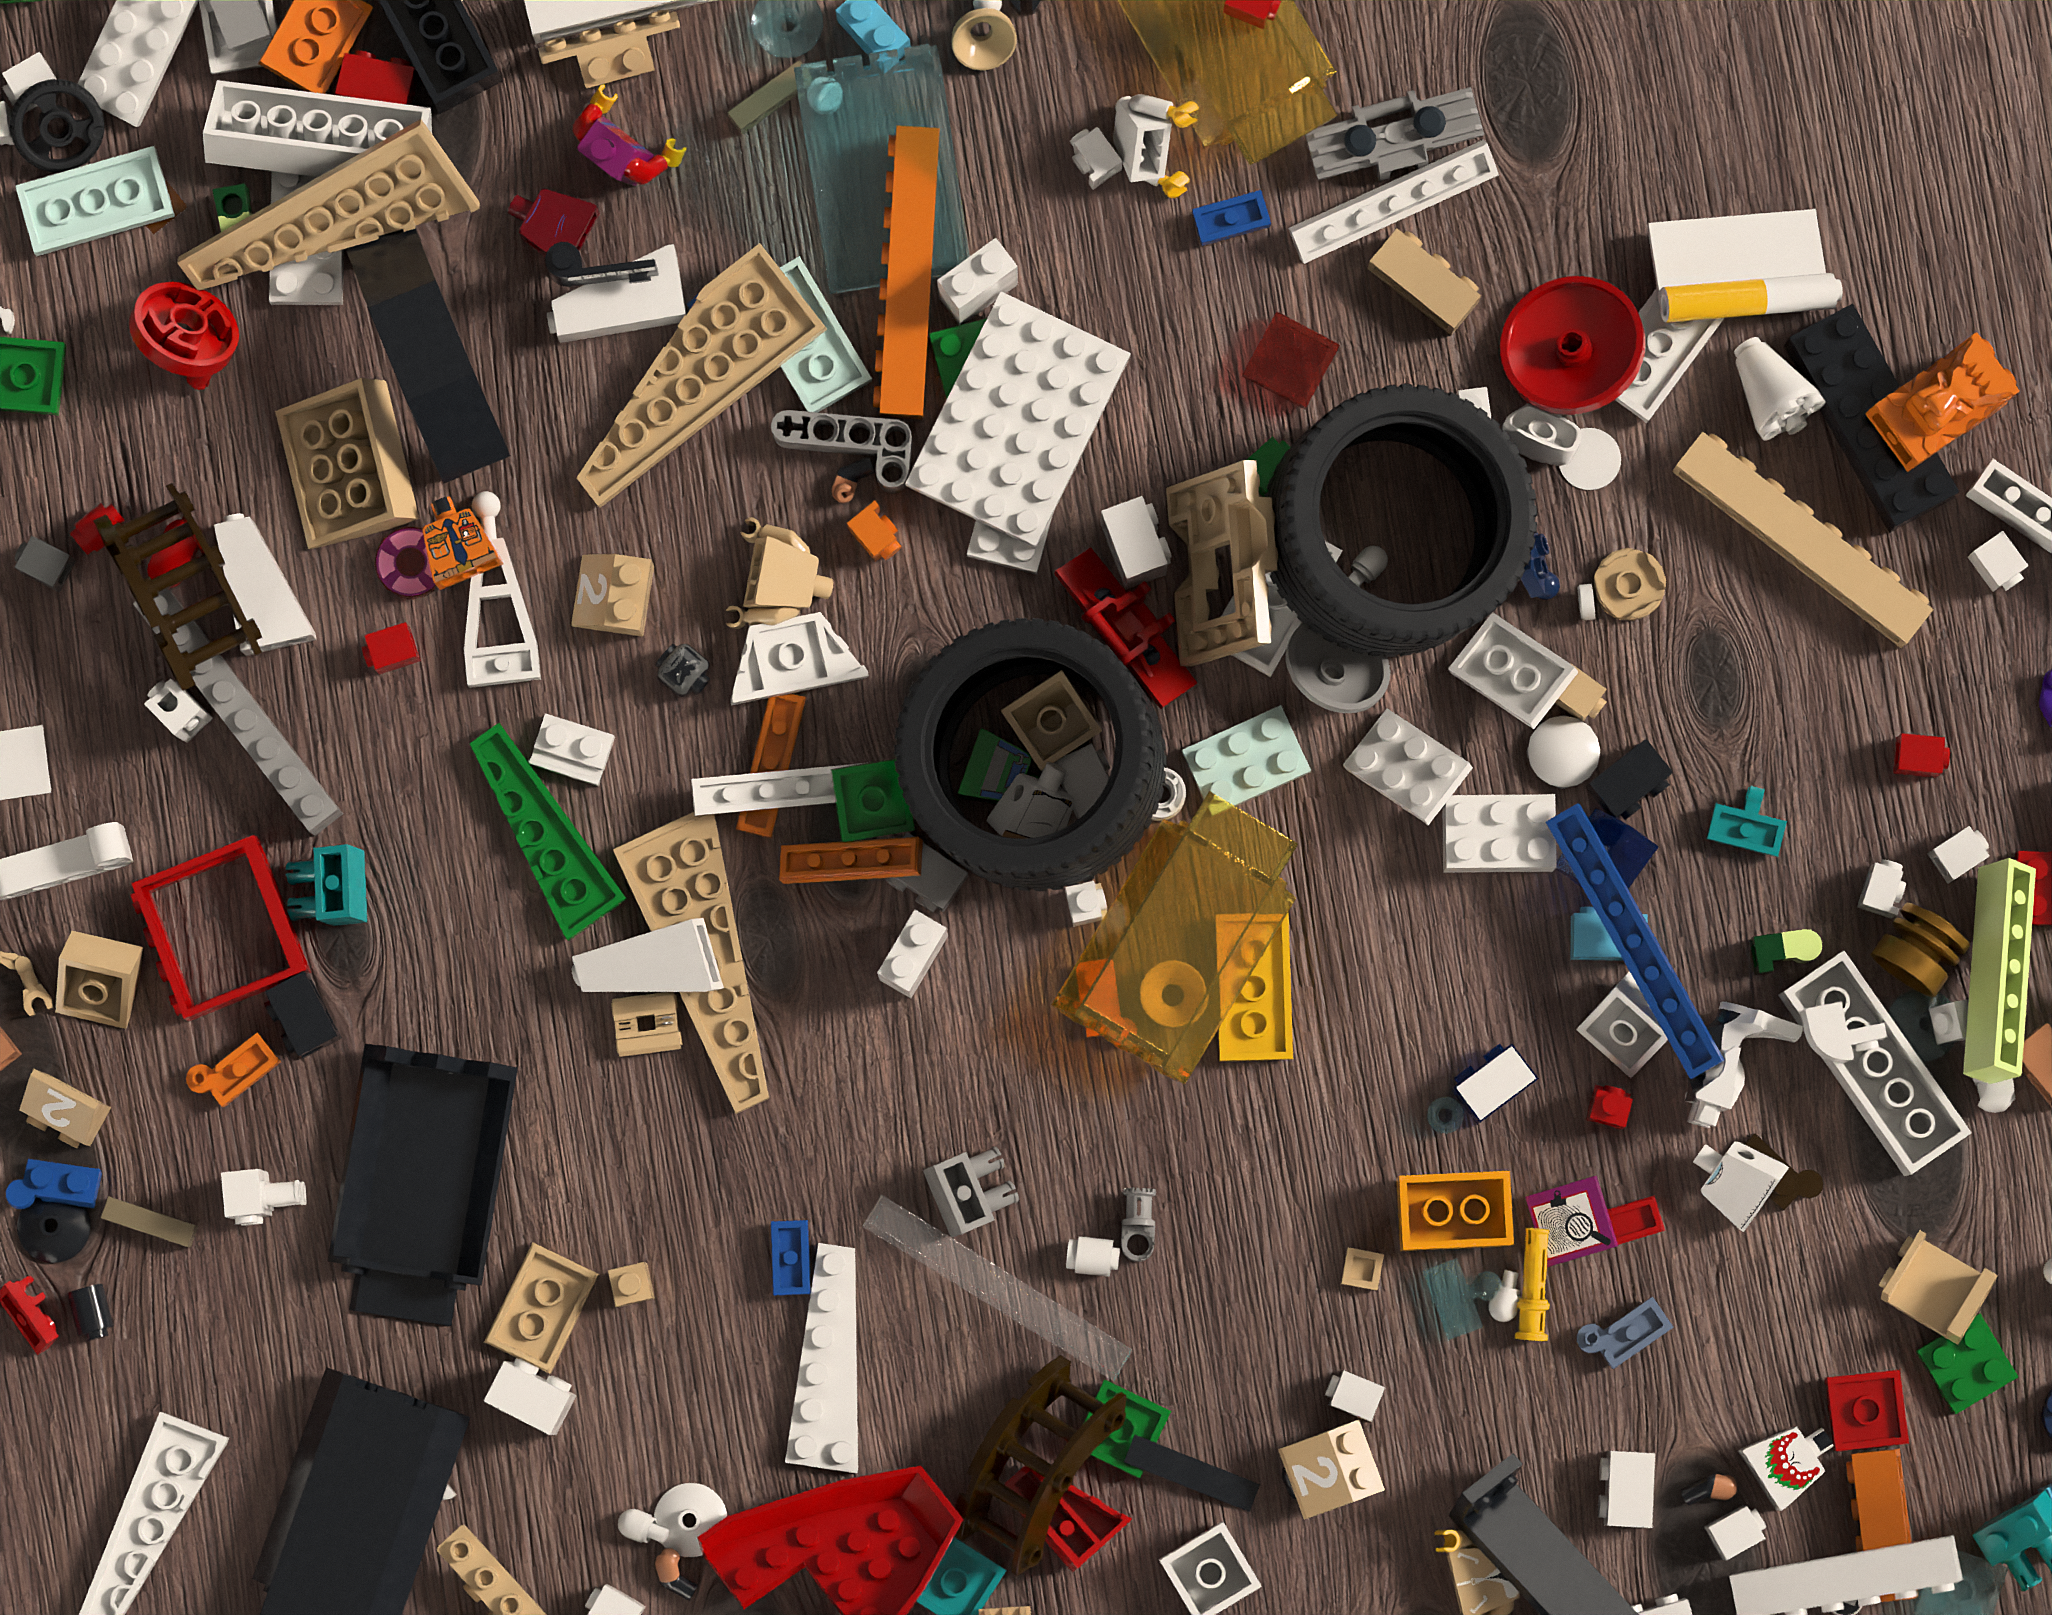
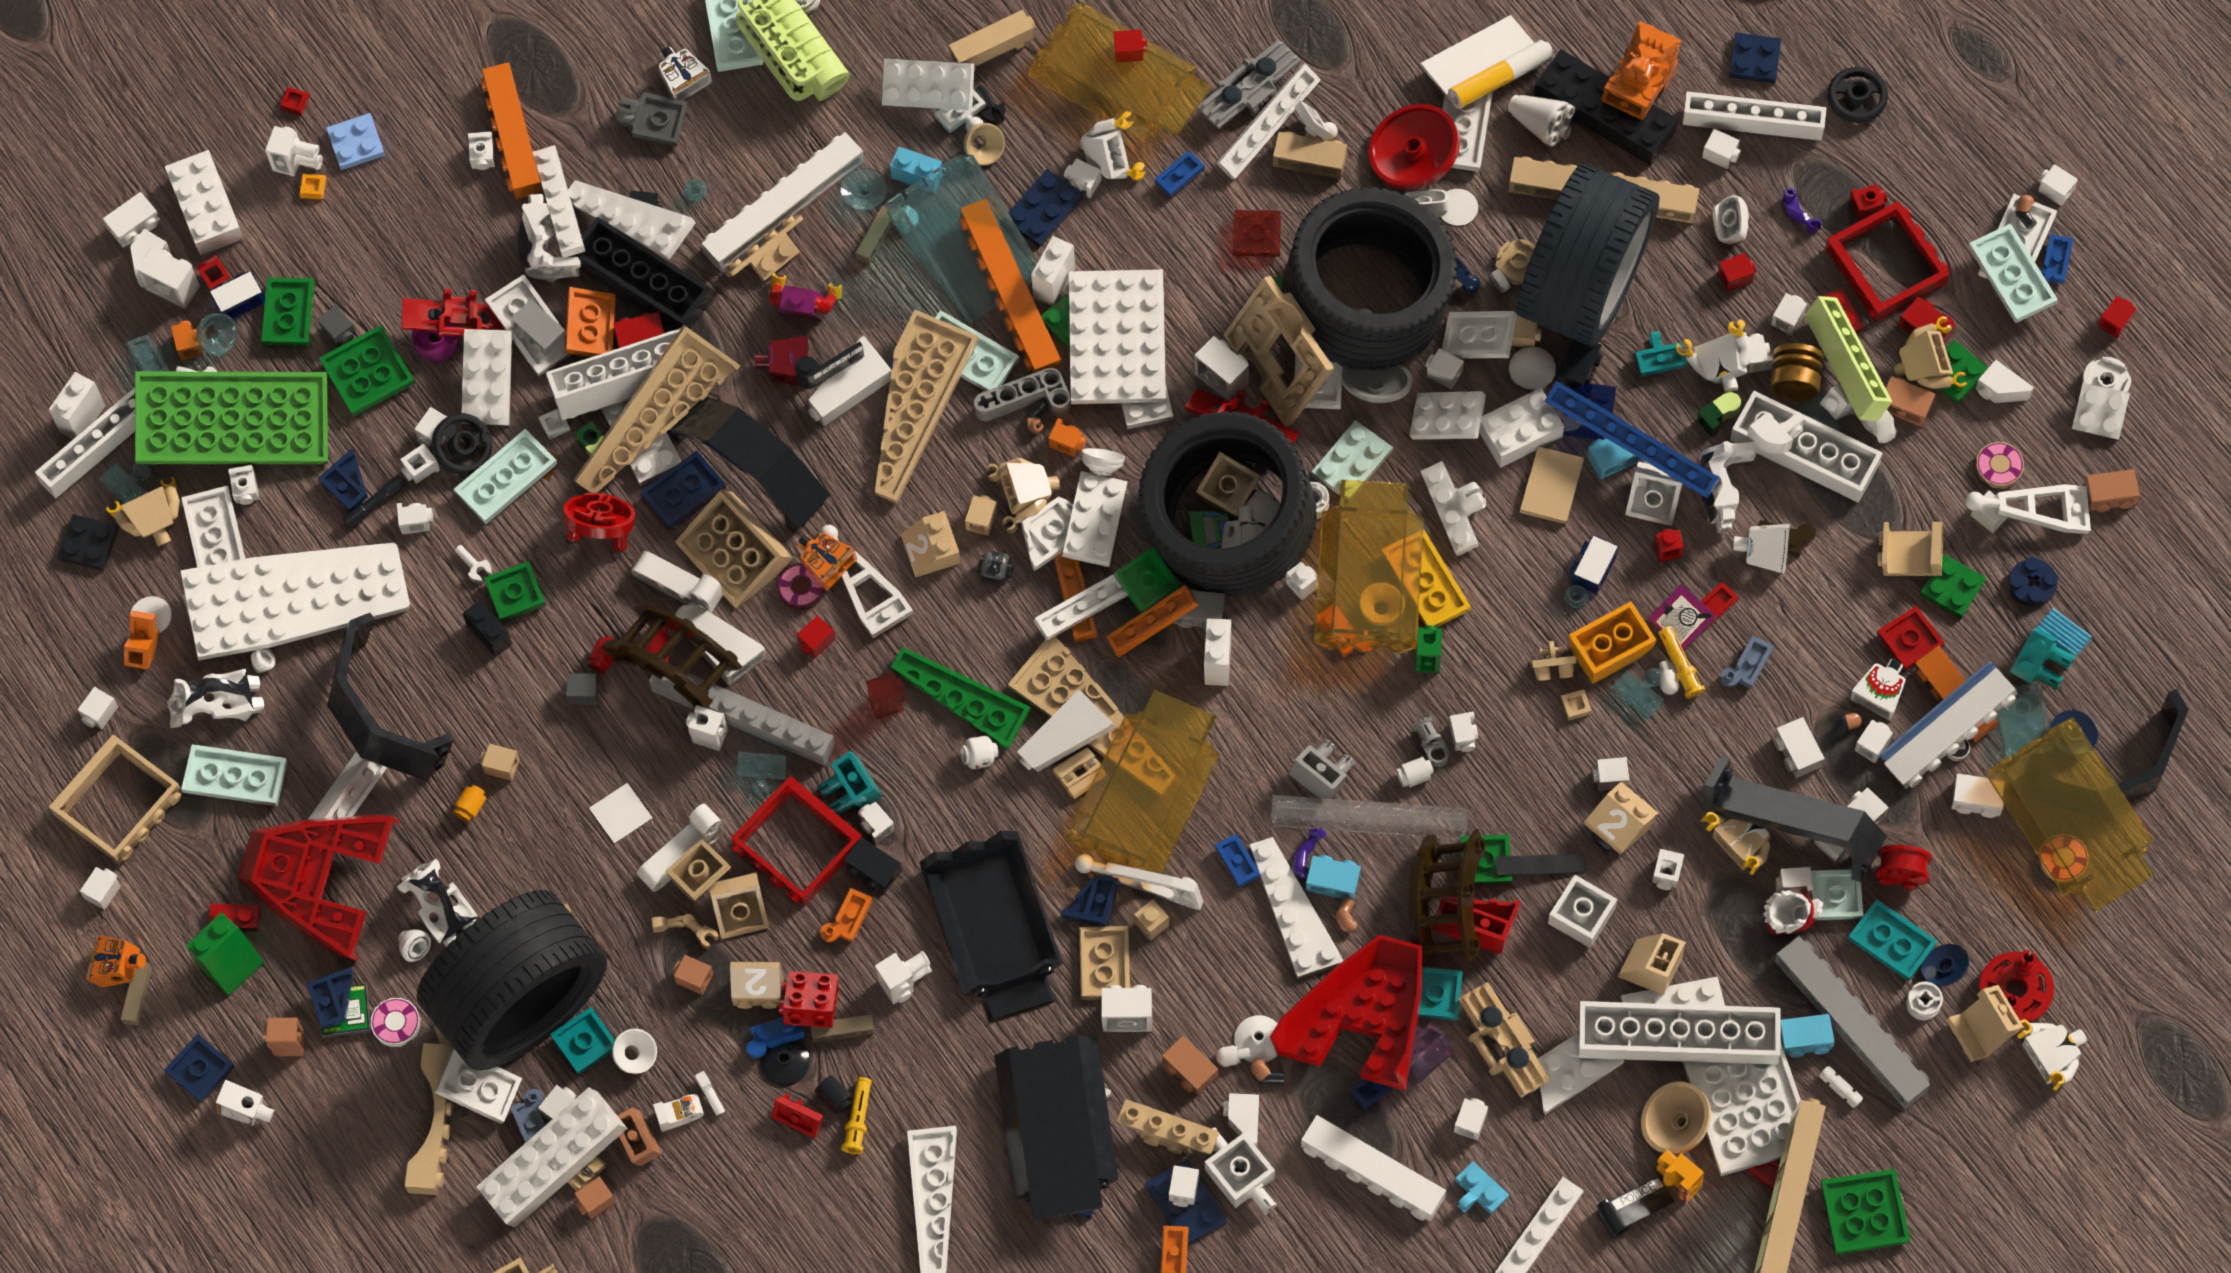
camera: 25 degrees left, 15 degrees down
(65, 909) = (697, 869): none -> tan slope
(122, 1164) = (809, 999): none -> red brick
(135, 1318) = (853, 1127): none -> yellow pin
(194, 157) = (553, 424): none -> white tile
(227, 799) = (761, 767): none -> clear light blue plate
(246, 474) = (677, 582): none -> white beam
(321, 342) = (683, 489): none -> dark blue plate
(337, 955) = (876, 822): none -> white brick
(438, 785) = (886, 695): none -> clear red brick
(524, 927) = (979, 752): none -> white head
(571, 749) = (953, 643): white plate -> none
(571, 1216) = (1094, 901): none -> dark blue wing
(575, 1514) = (1189, 1066): none -> nougat brick
(586, 1157) = (1183, 891): none -> white plate
(703, 584) = (981, 515): none -> tan brick
(721, 1093) = (1147, 785): none -> clear yellow panel
(851, 671) = (1094, 519): none -> white plate
(880, 1292) = (1301, 854): none -> dark purple arm
(890, 1410) = (1343, 916): none -> nougat arm
(904, 1349) = (1333, 877): none -> medium azure brick
(905, 590) = (1102, 461): none -> white piece
(1019, 172) = (1044, 207): none -> dark blue plate
(1188, 1233) = (1463, 731): none -> white brick
(1195, 1102) = (1428, 649): none -> green brick
(1348, 900) = (1454, 506): none -> white plate
(1364, 1191) = (1564, 664): none -> tan hips
(1371, 1567) = (1670, 862): none -> white brick
(1441, 692) = (1444, 368): none -> white brick
(1452, 238) = (1314, 123): none -> white plate
(1499, 936) = (1552, 485): none -> tan tile
(1712, 649) = (1587, 254): none -> black wheel
(1827, 875) = (1721, 358): none -> white torso
(1843, 1544) = (1937, 711): none -> medium blue axle
(1954, 675) = (1731, 220): none -> white piece

